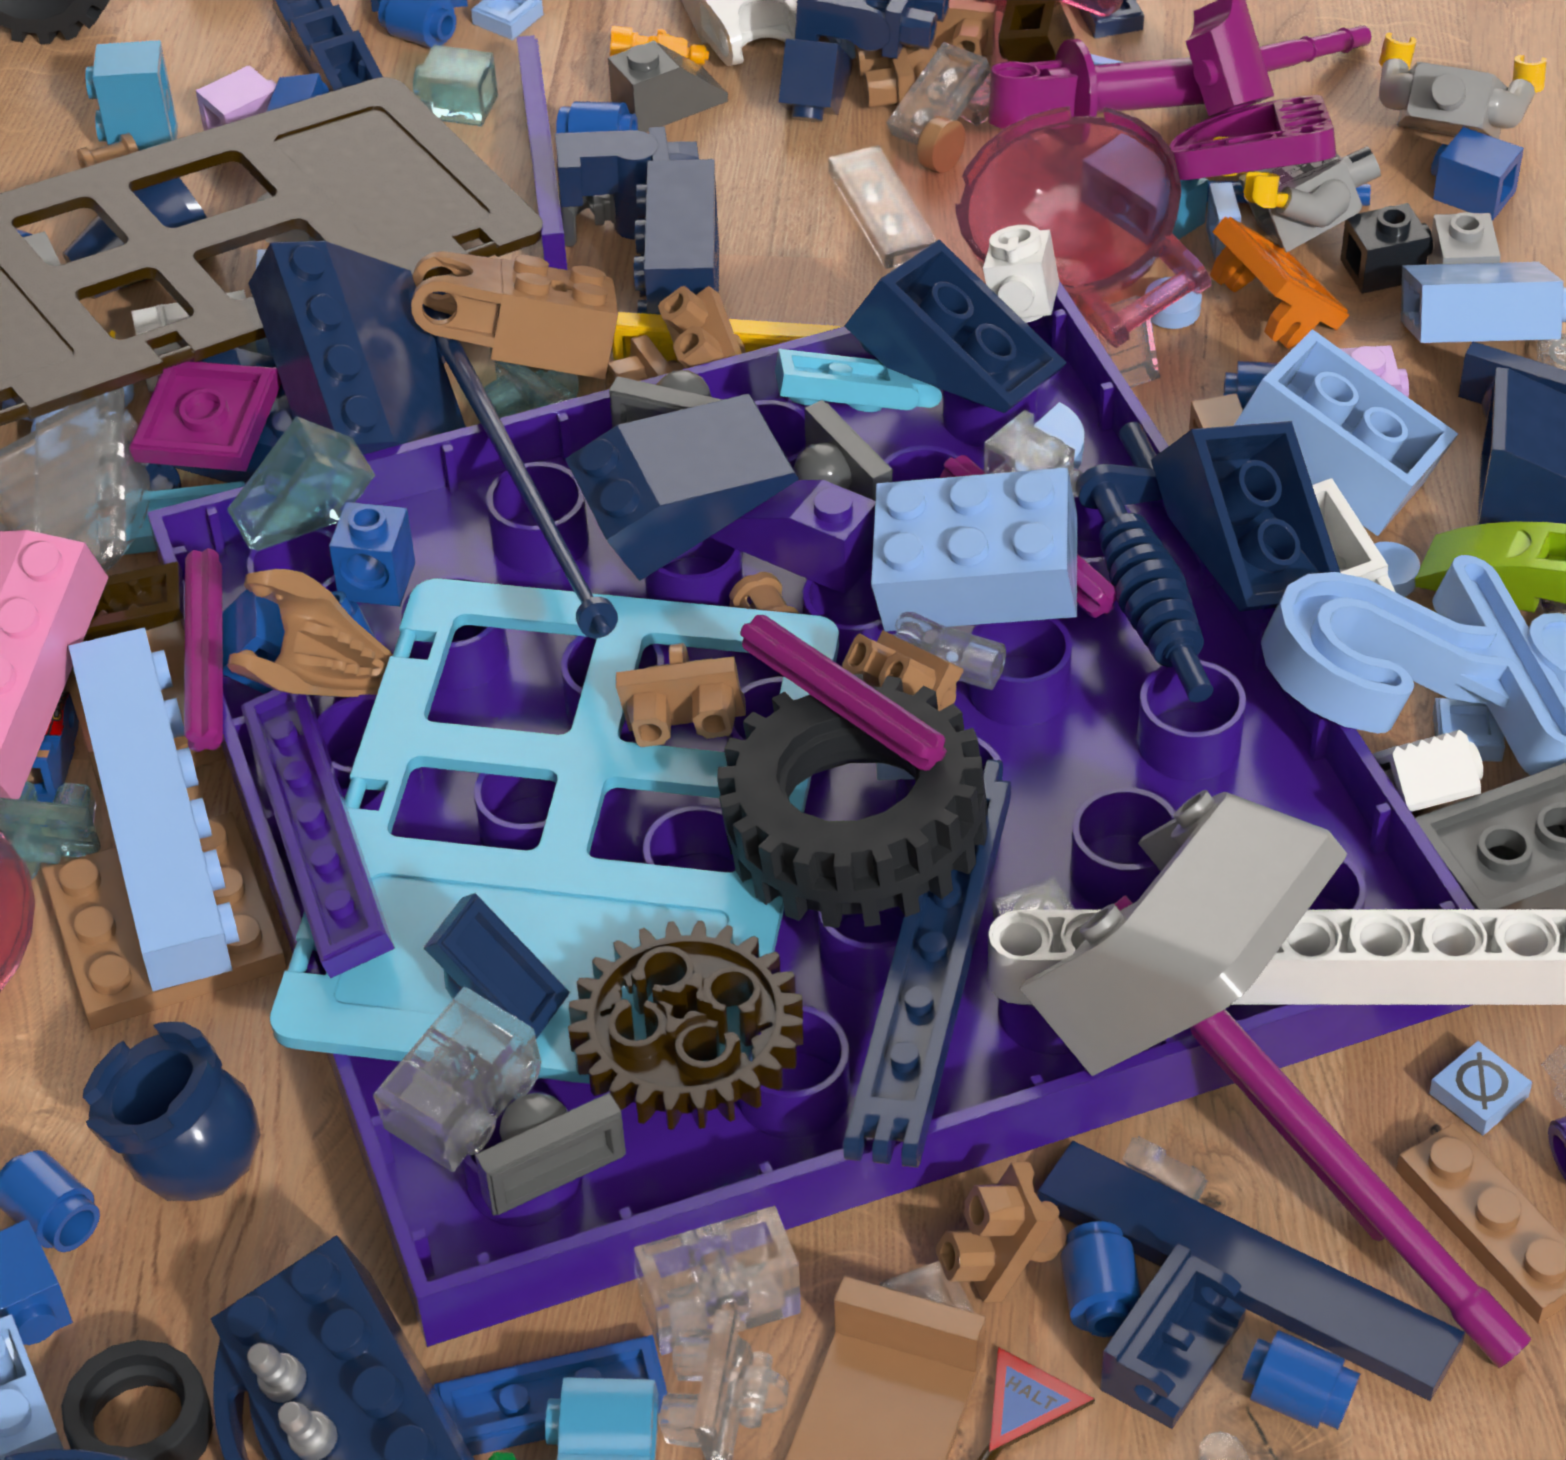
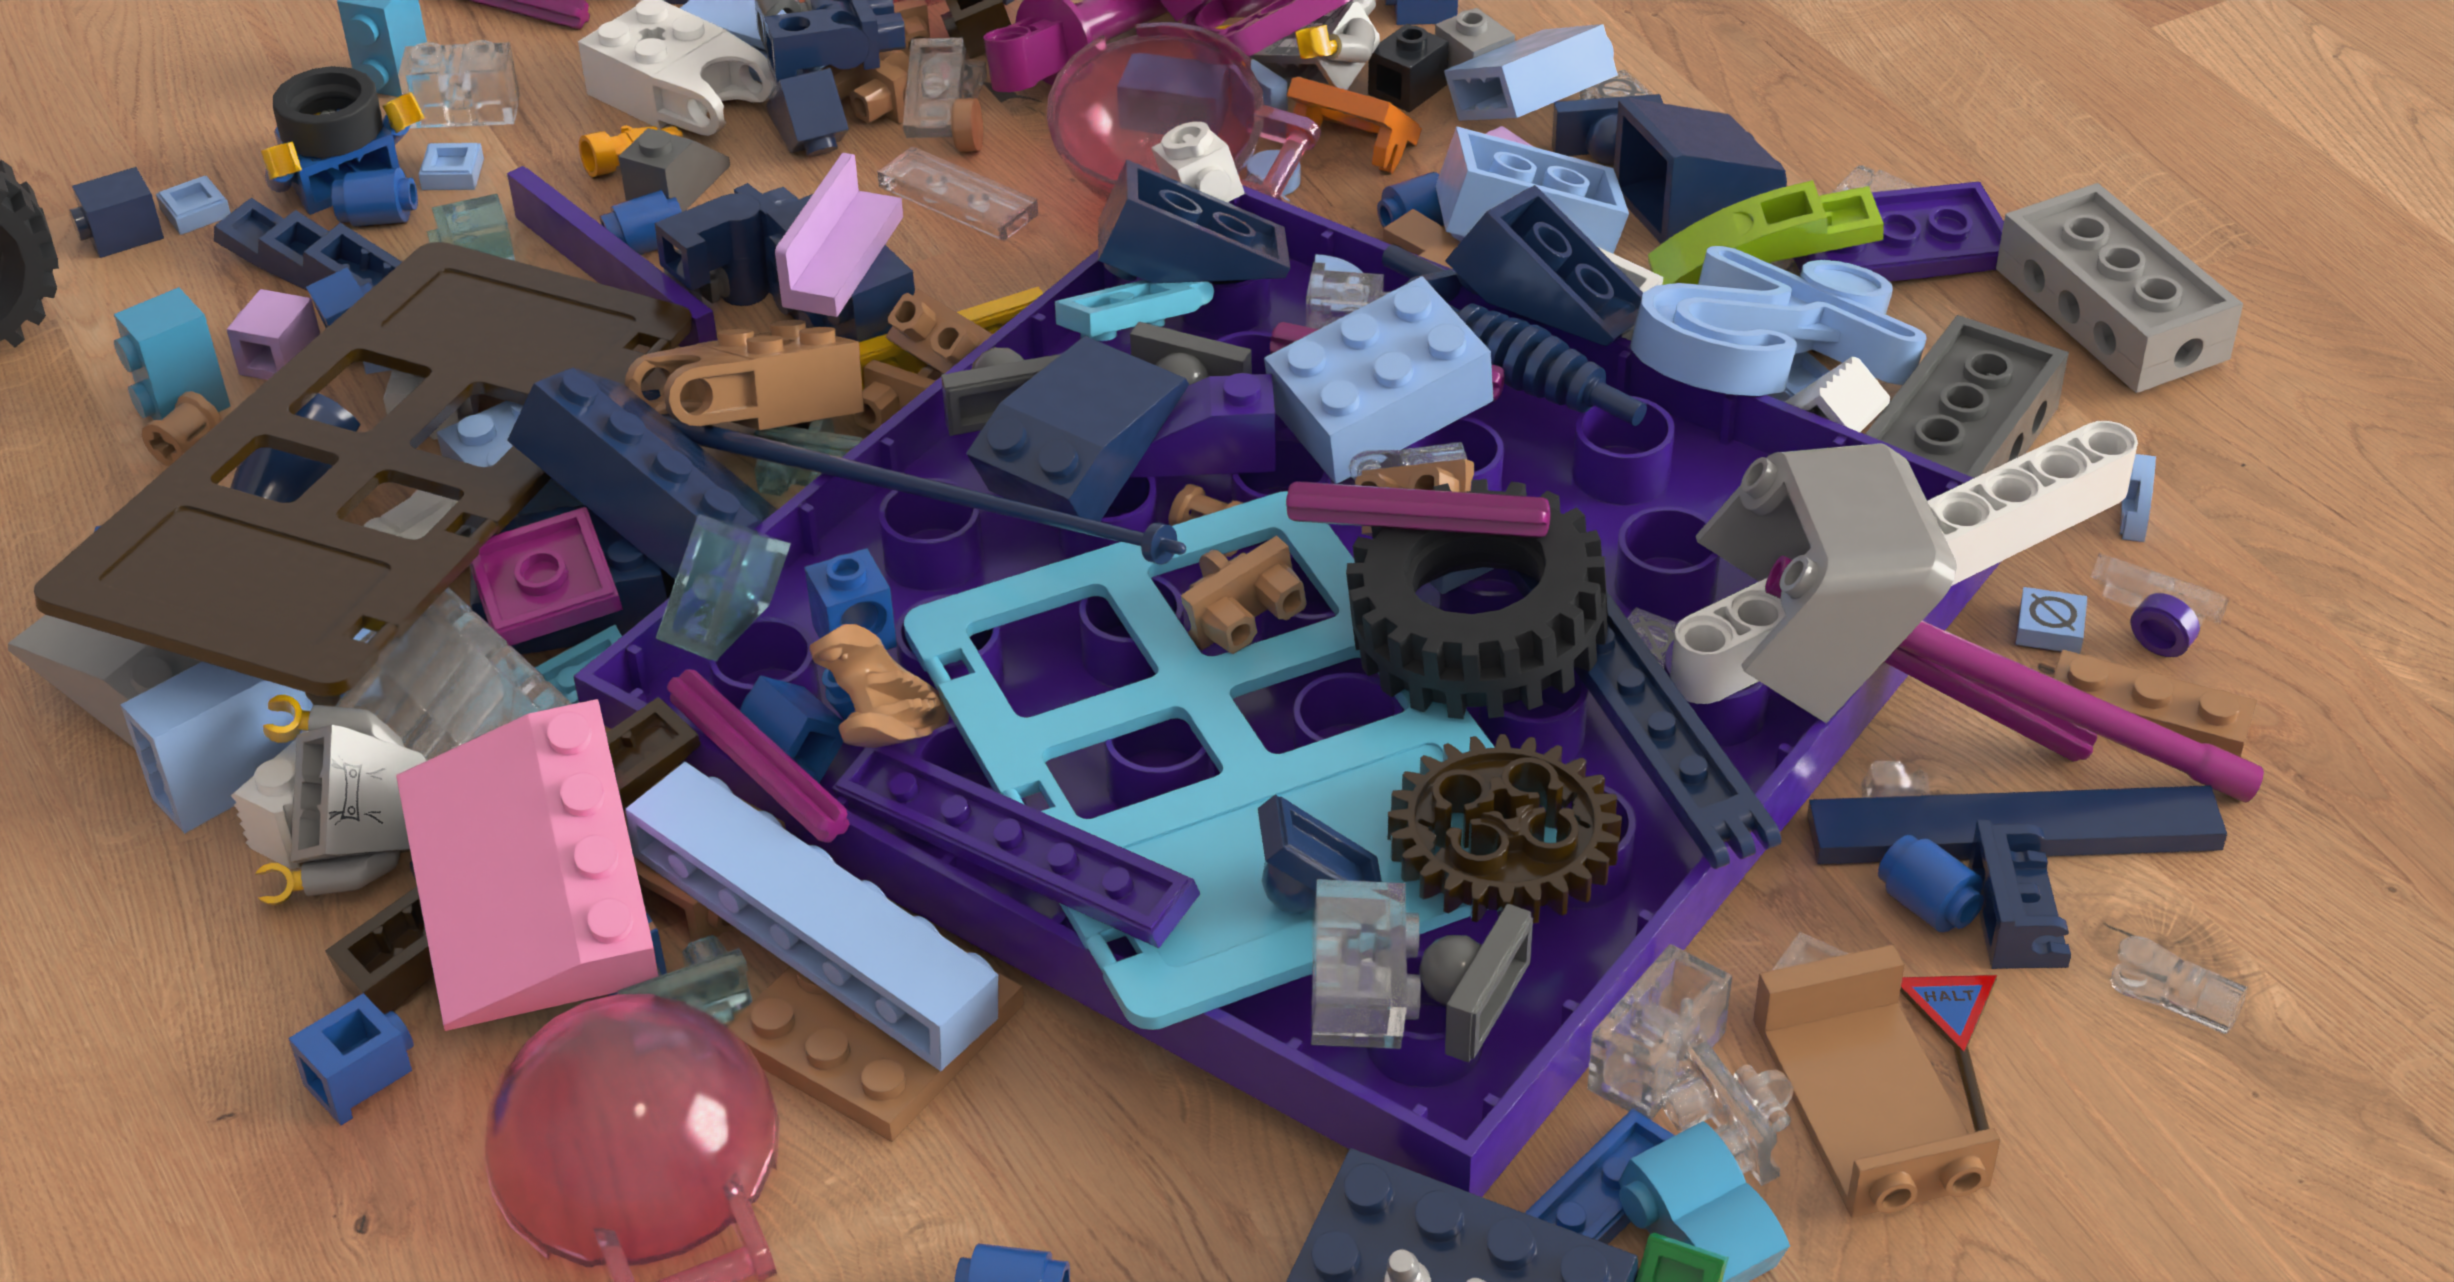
camera: 35 degrees left, 5 degrees down
(174, 1114) = (1091, 1138): dark blue tile -> none
(659, 209) = (834, 241): none -> lavender panel
(1003, 1234) = (1843, 882): medium nougat hips -> none
(1300, 1380) = (2137, 877): blue brick -> none

